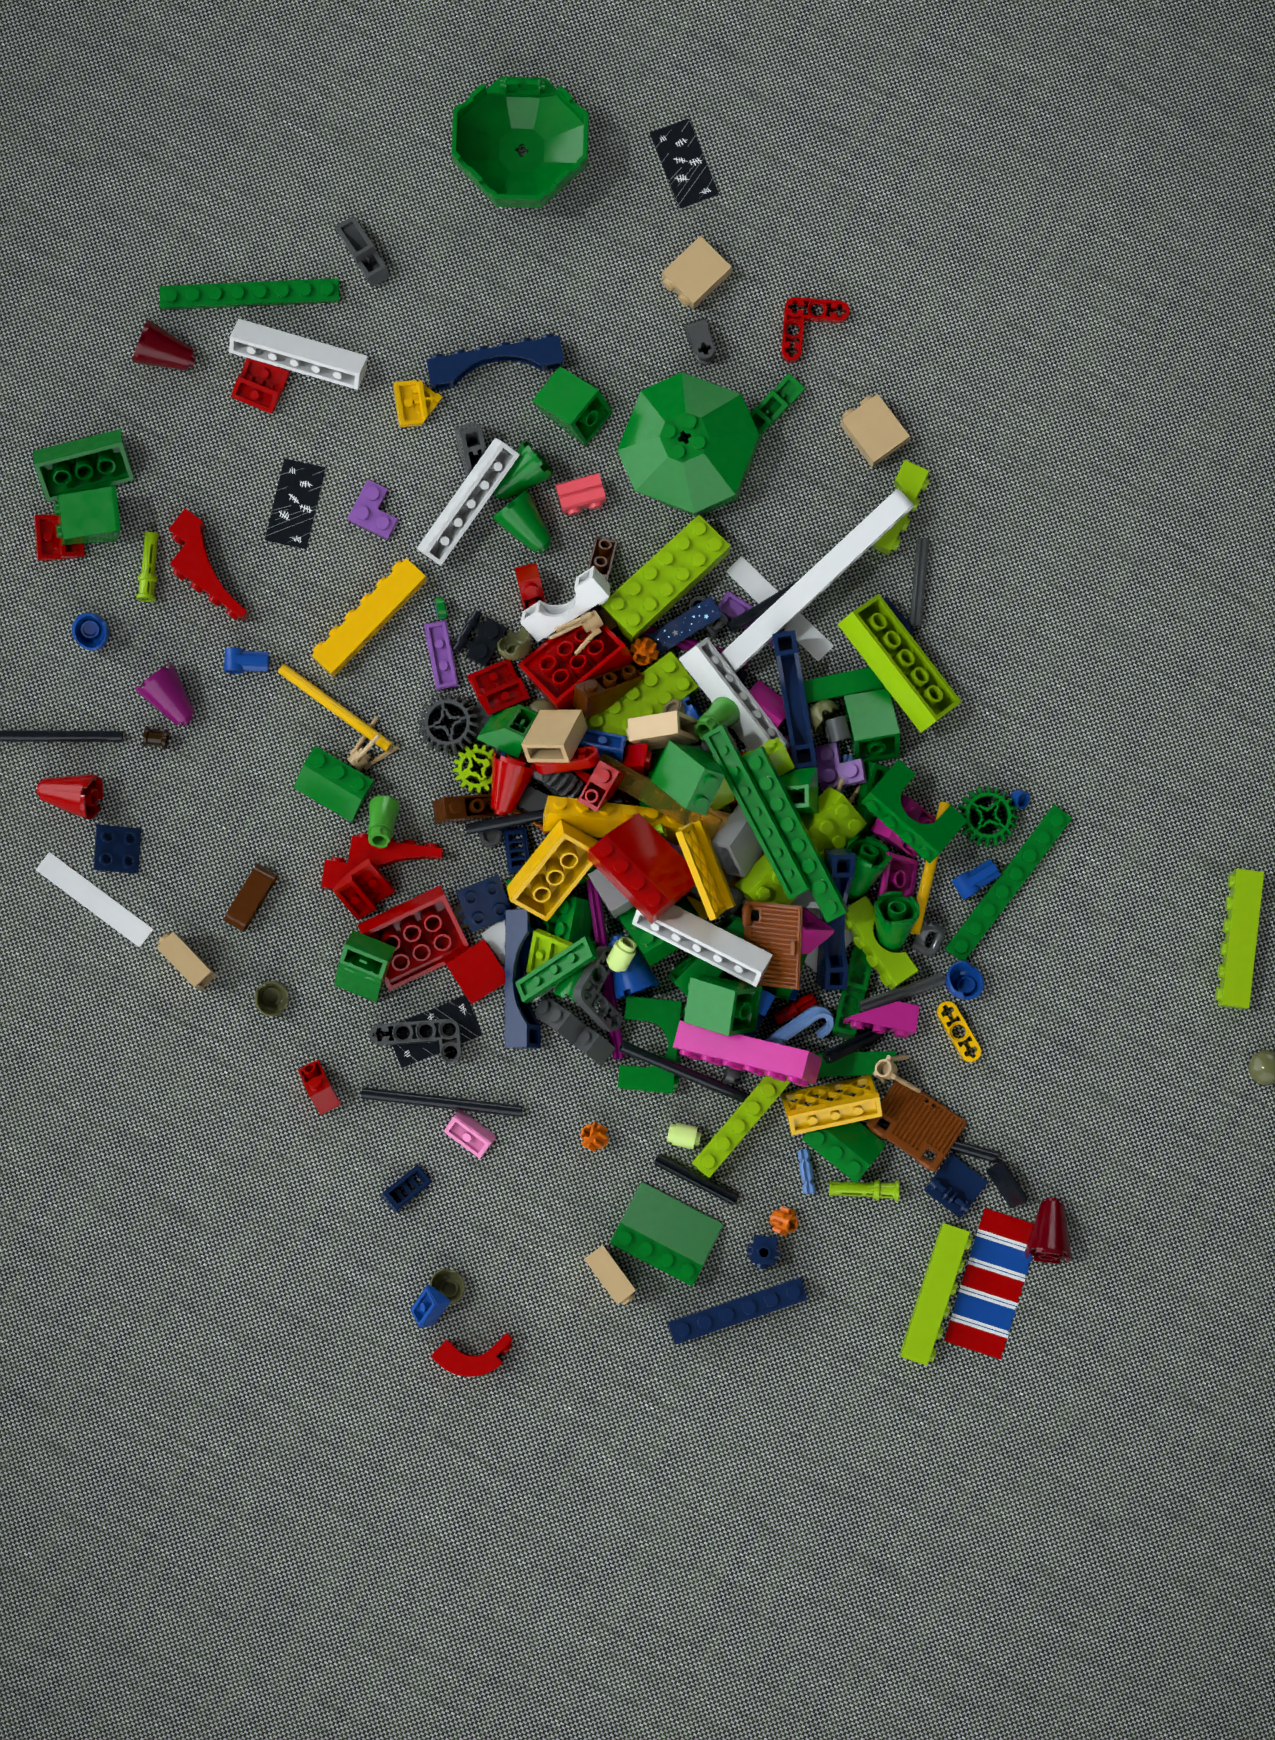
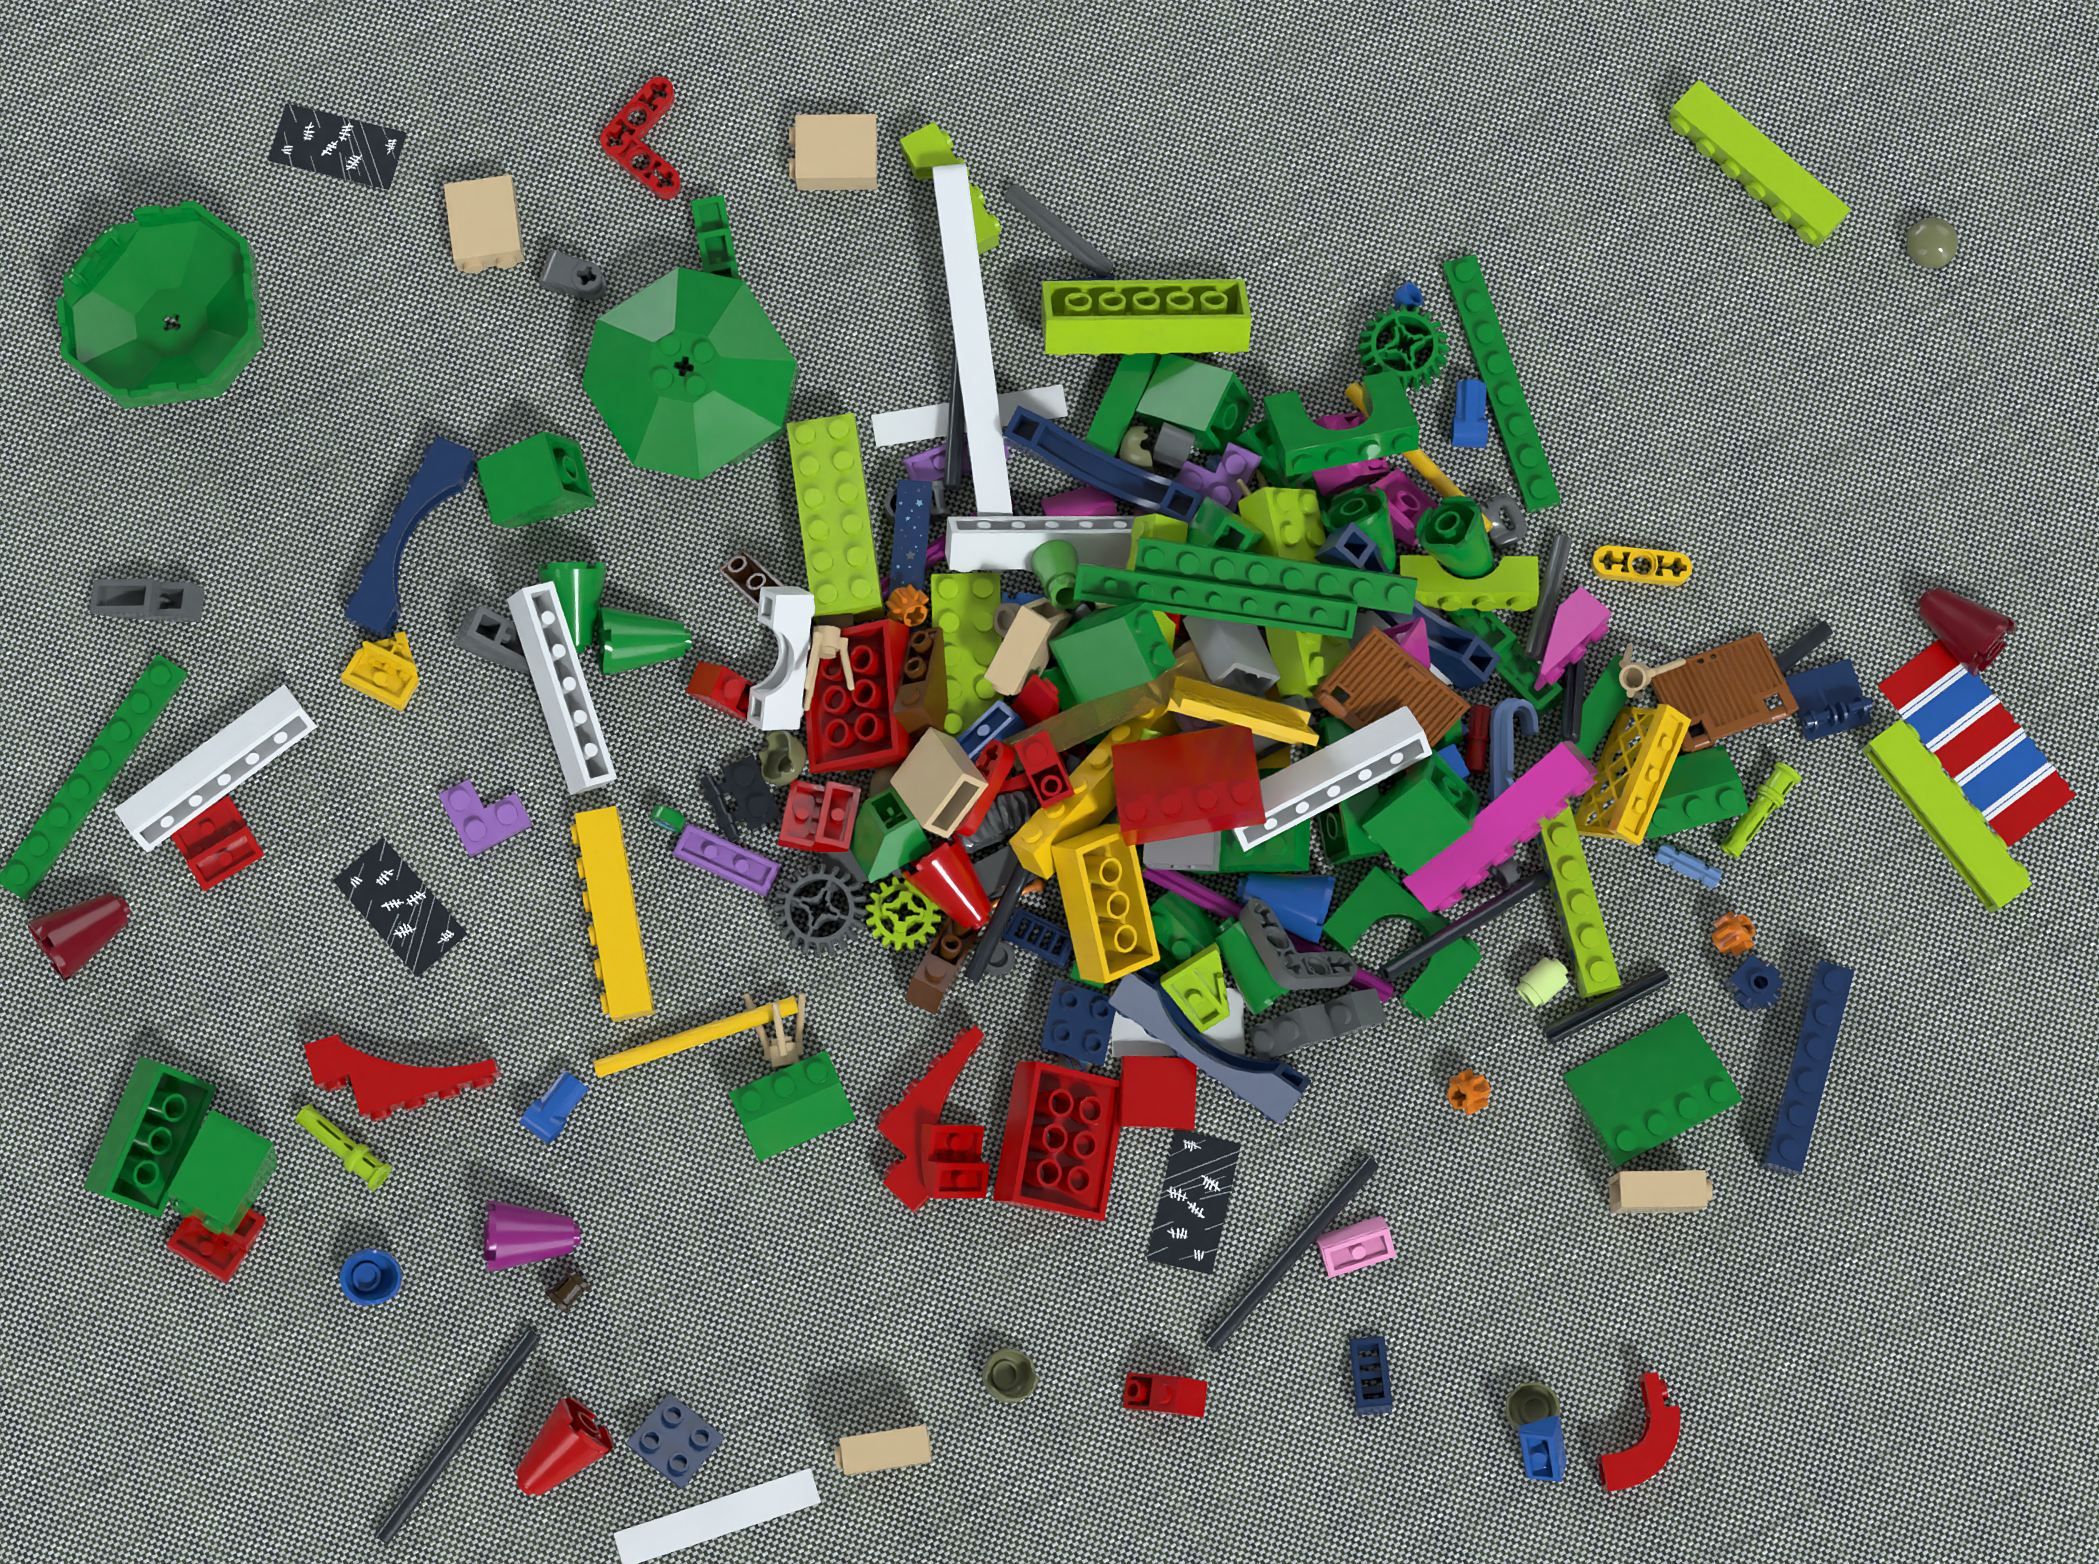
camera: 55 degrees left, 5 degrees down
(250, 898) = (861, 1313): reddish brown beam -> none
(363, 966) = (1055, 1226): green slope -> none
(382, 819) = (880, 1072): bright green plant -> none
(415, 1036) = (1187, 1226): dark grey beam -> none
(556, 969) = (1232, 987): green plate -> none
(581, 494) = (653, 549): coral brick -> none
(621, 954) = (1272, 891): yellowish green brick -> none
(964, 980) = (1586, 513): blue hair -> none
(1006, 1184) = (1868, 637): black slope -> none

